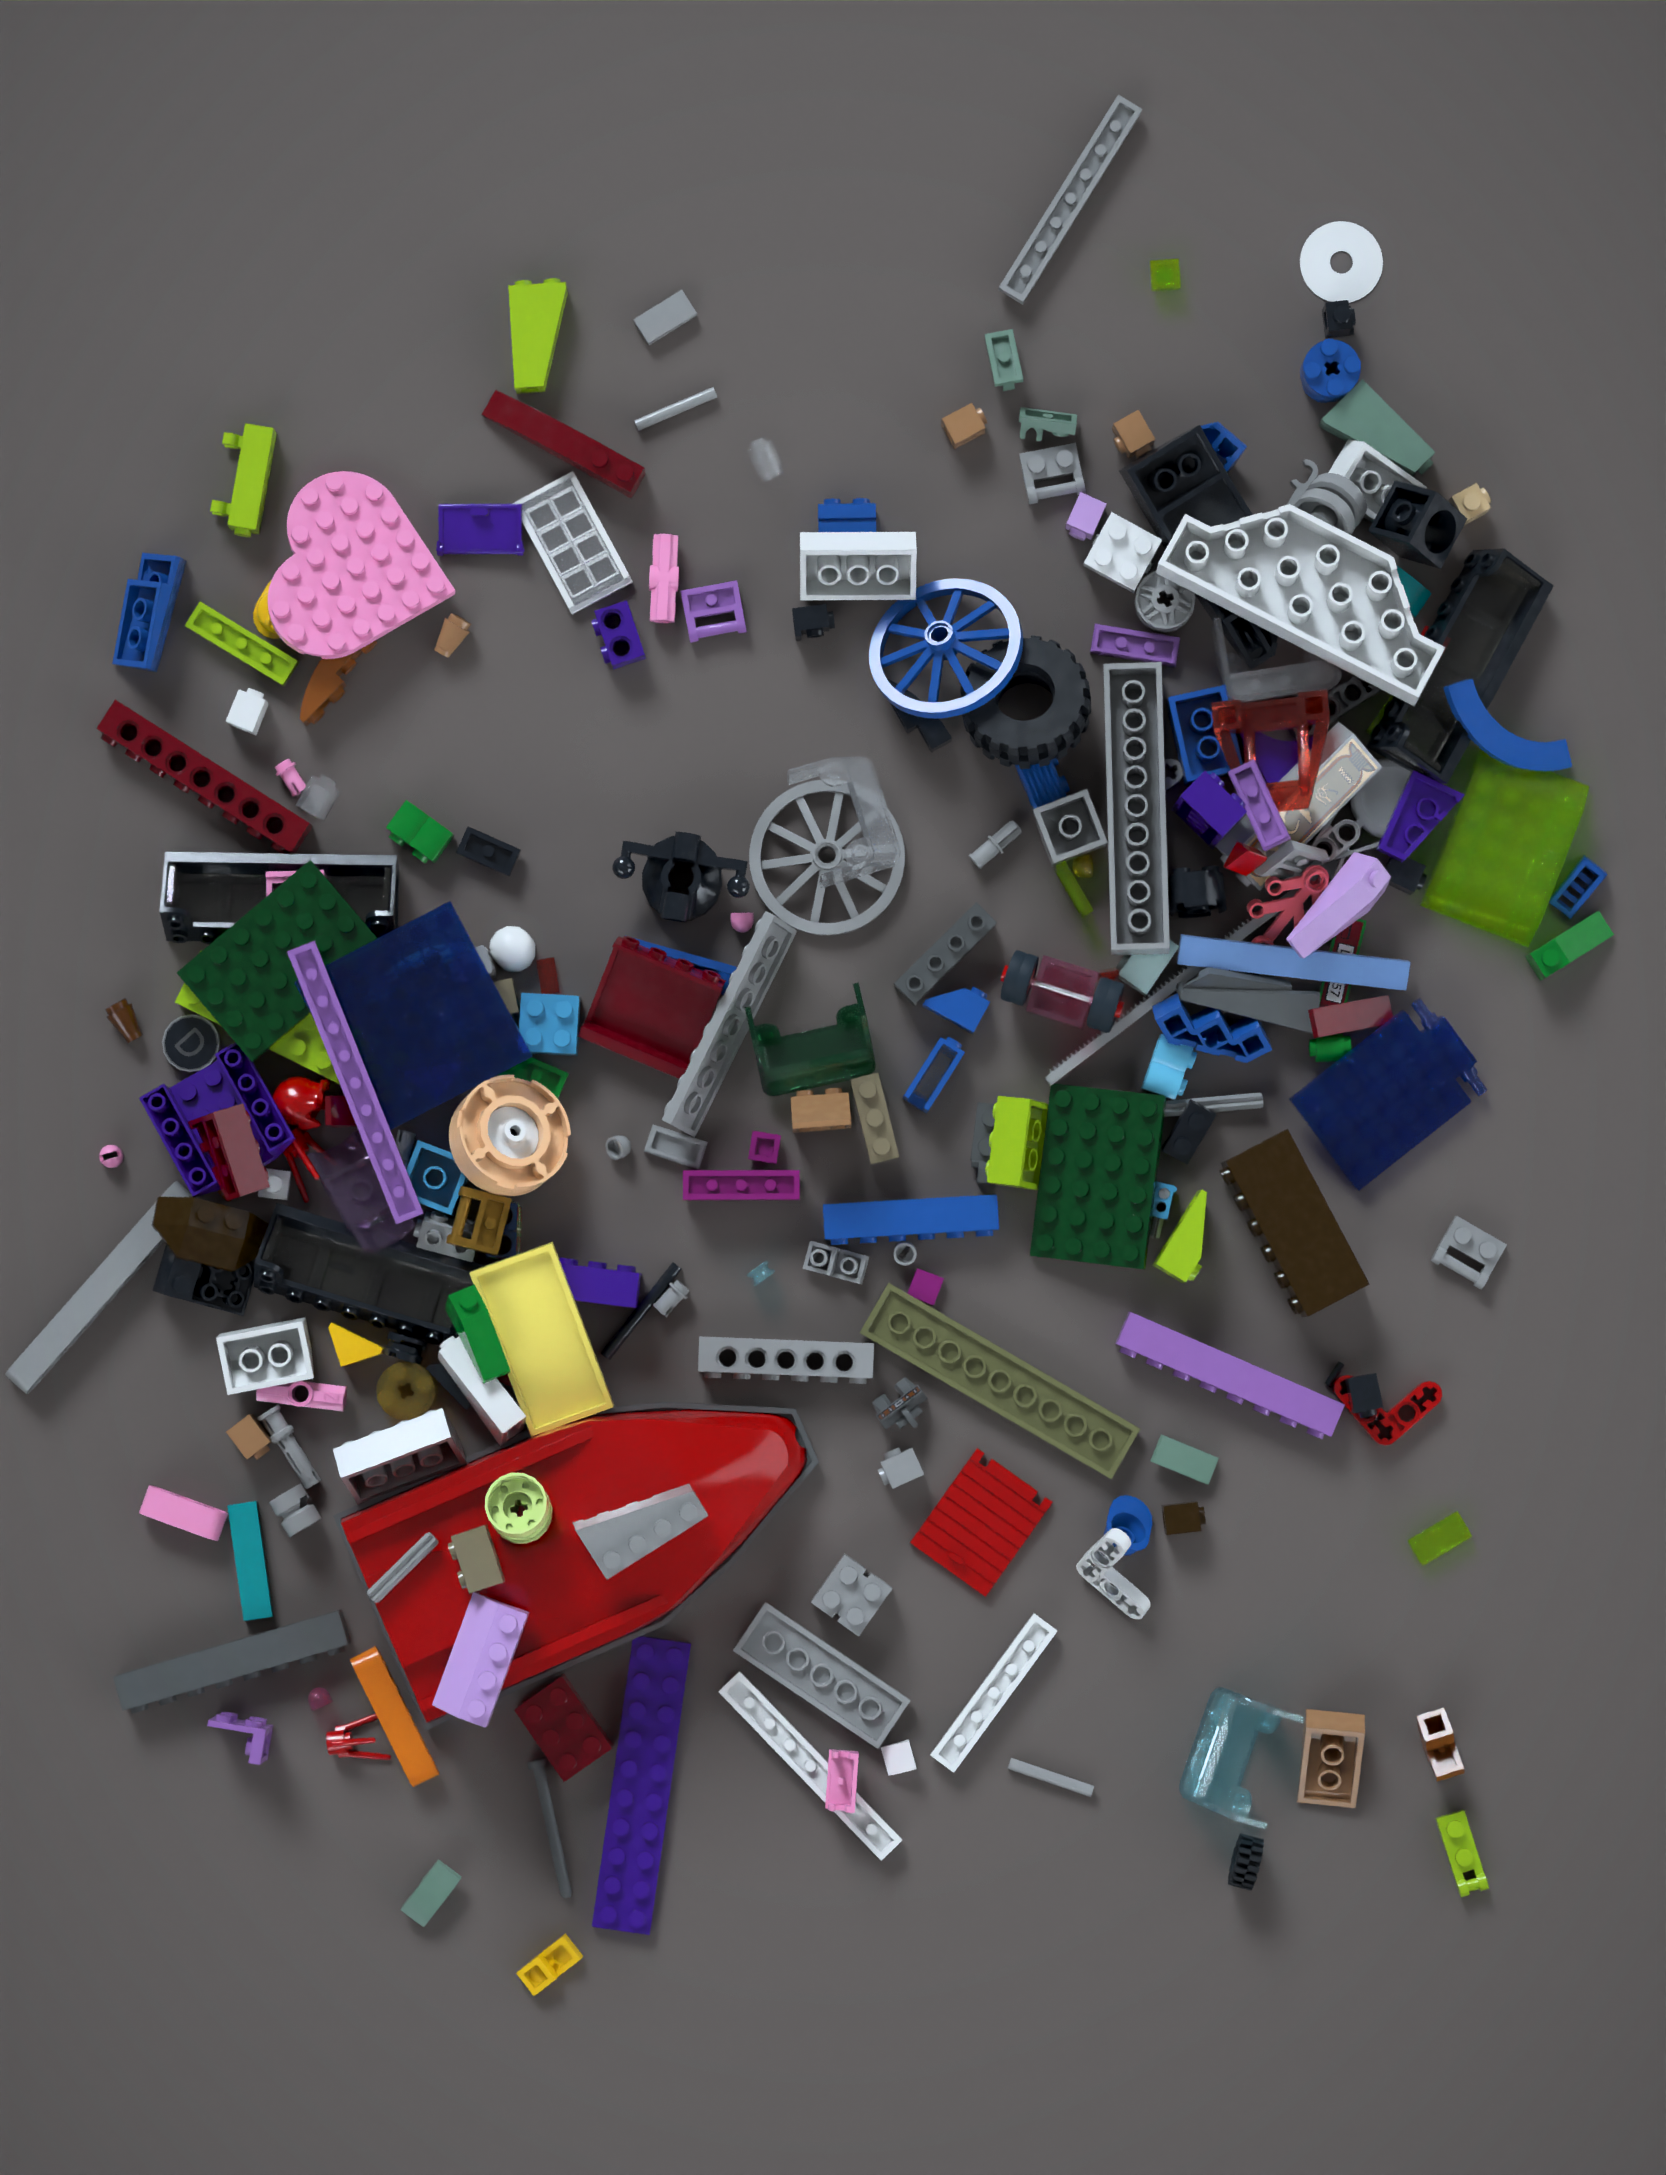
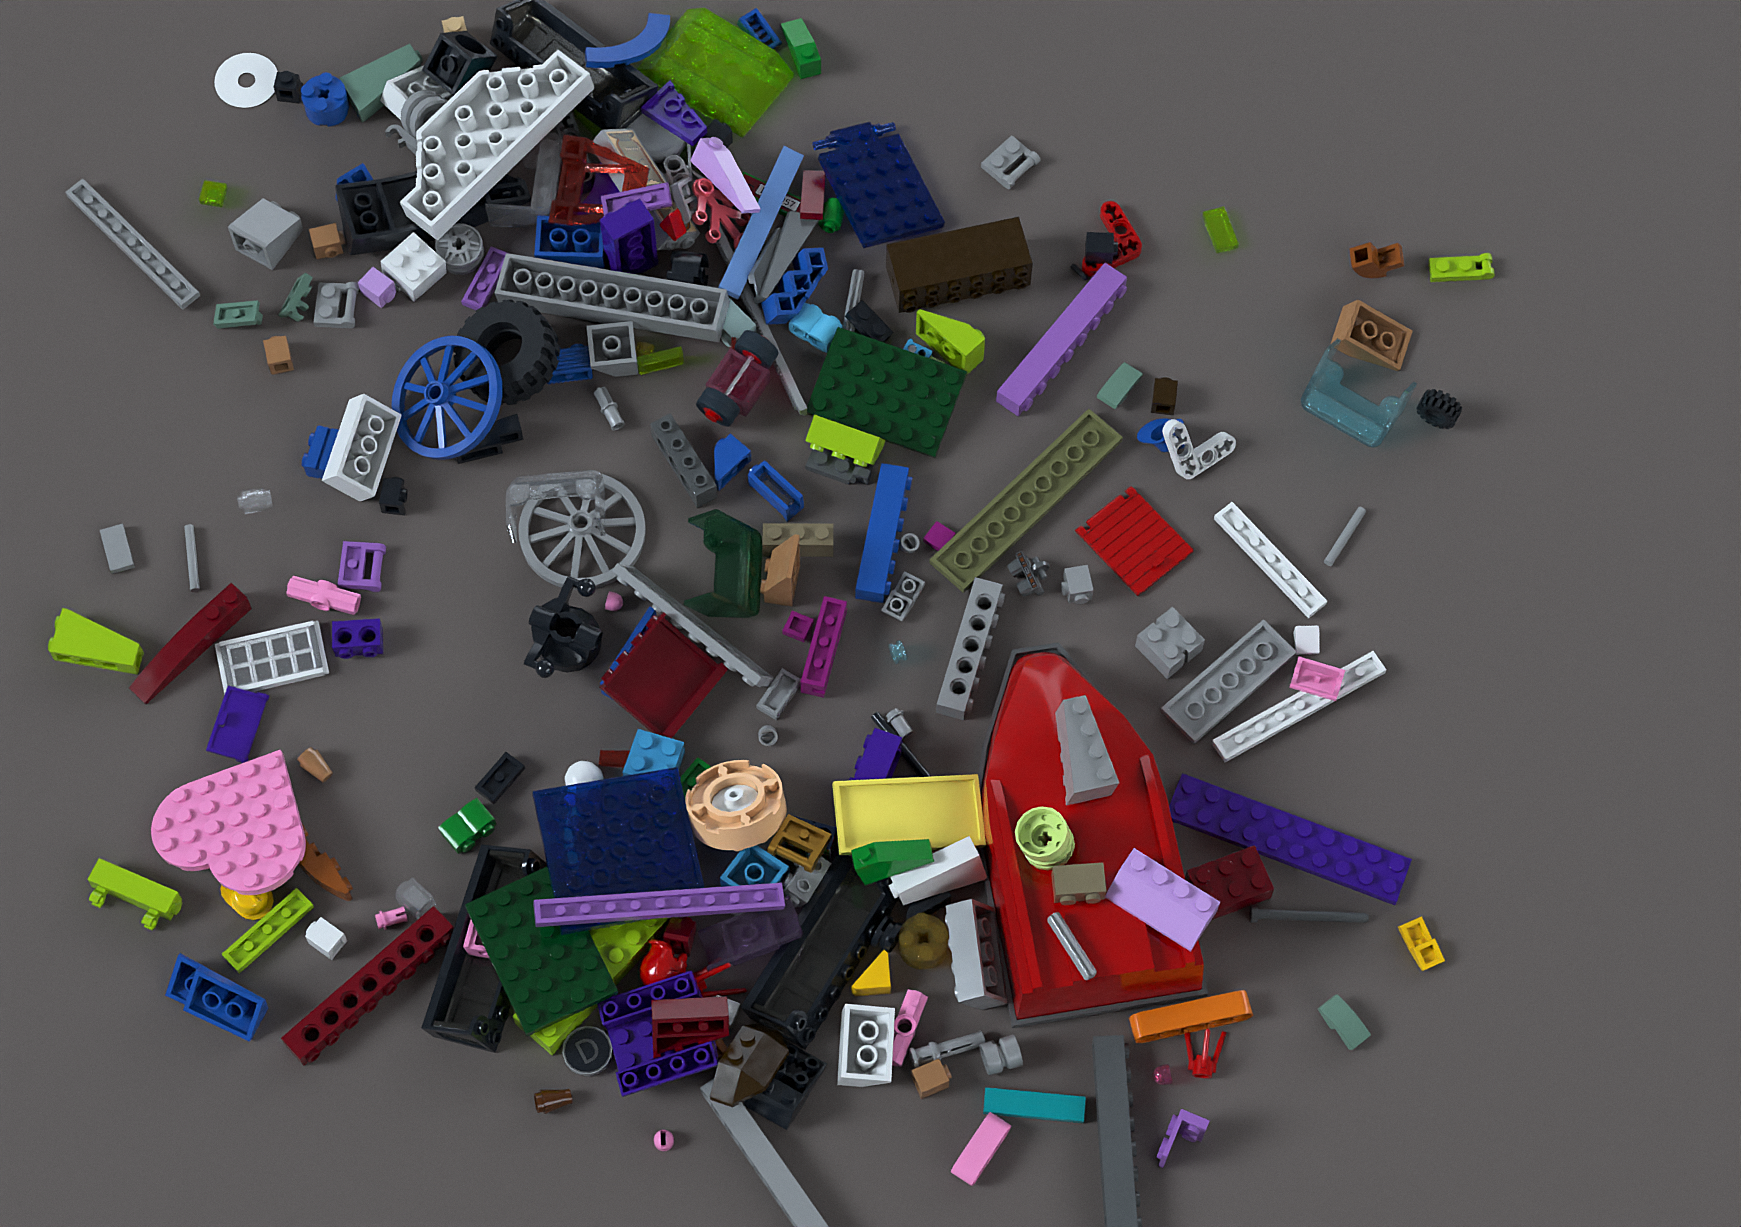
camera: 75 degrees left, 20 degrees down
(1126, 358) = (265, 232): none -> light grey slope

